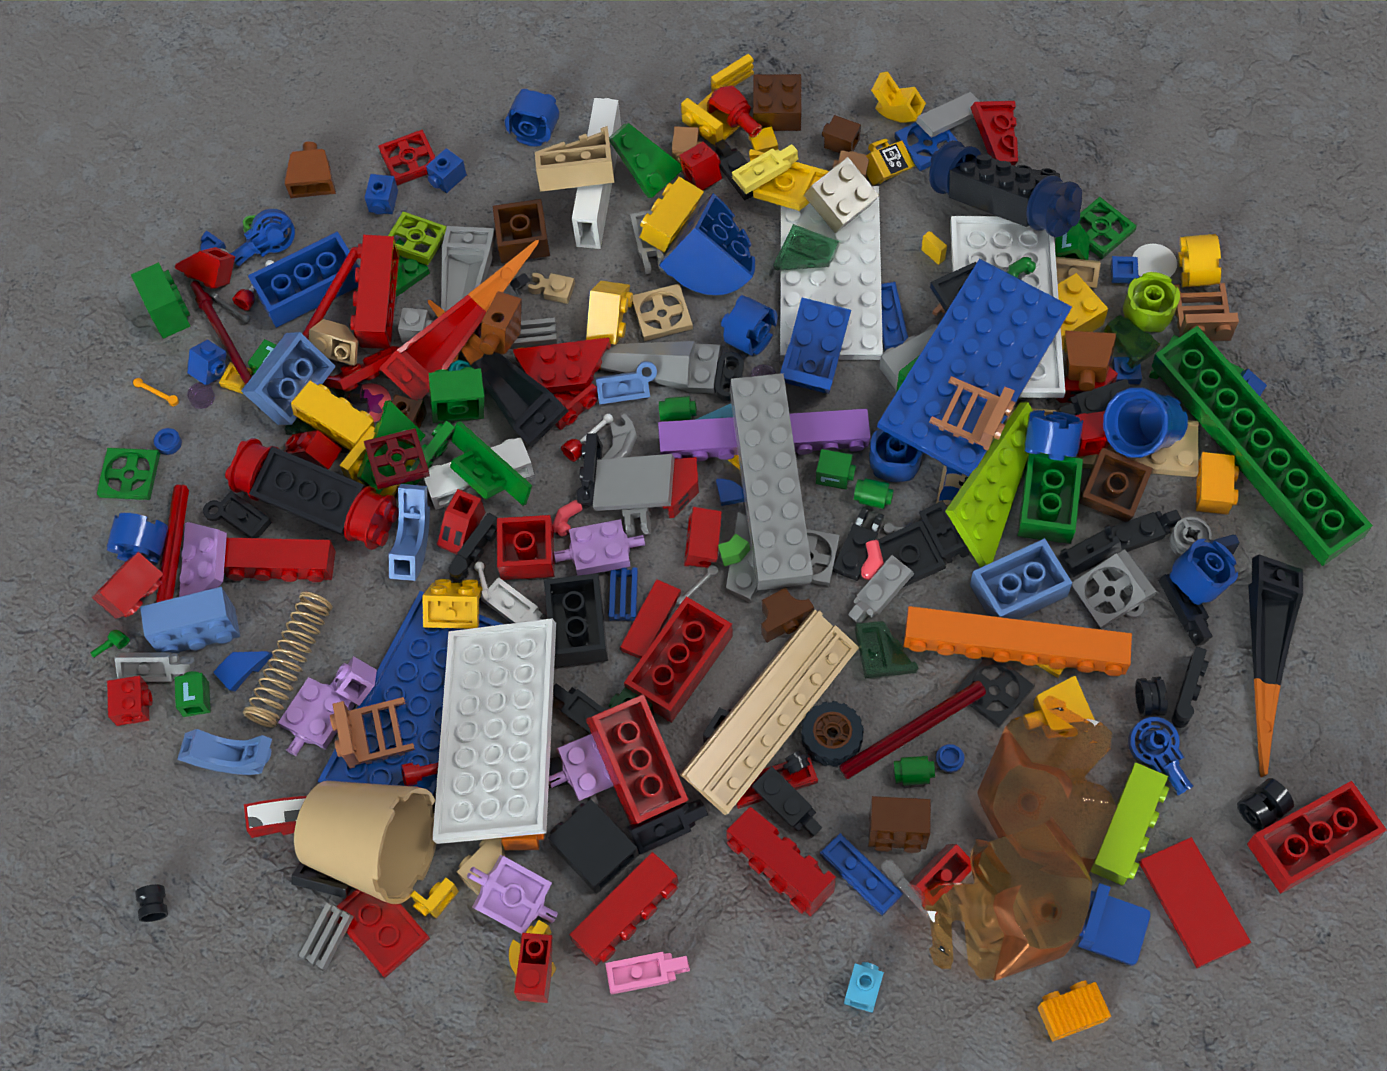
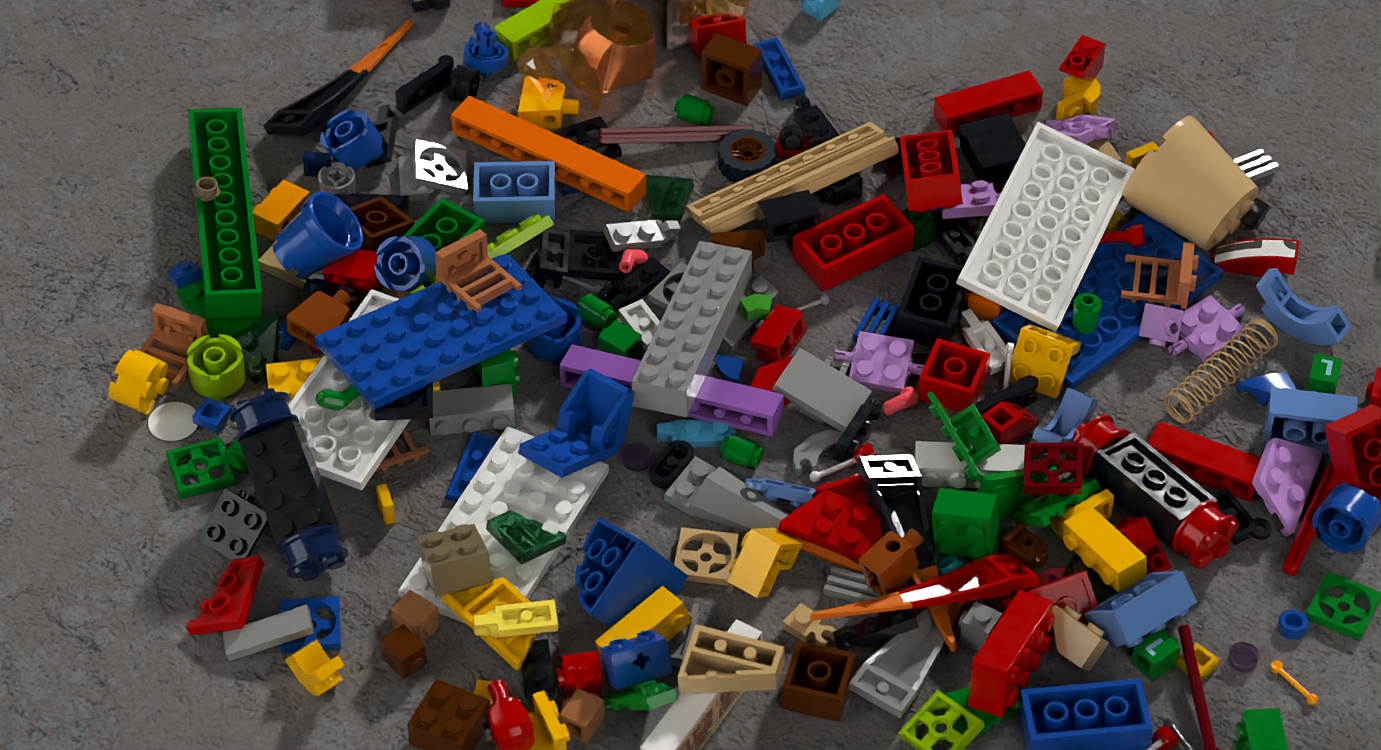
camera: 160 degrees left, 15 degrees down
(206, 362) = (1226, 671): blue brick -> none
(332, 290) = (1113, 661): red piece -> none
(426, 651) = (1086, 312): none -> green brick
(644, 971) = (987, 62): bright pink hinge -> none
(650, 619) = (860, 295): red tile -> none
(660, 176) = (648, 664): none -> blue brick
(743, 644) = (787, 216): none -> black brick
(749, 325) = (627, 487): blue brick -> none
(780, 862) = (839, 79): red wedge -> none
(826, 500) = (640, 319): none -> white plate
(887, 161) = (369, 614): yellow piece -> none
(950, 758) = (657, 110): blue plate -> none
(1091, 551) = (426, 191): black hinge -> none
(1279, 422) = (206, 188): none -> dark tan plate

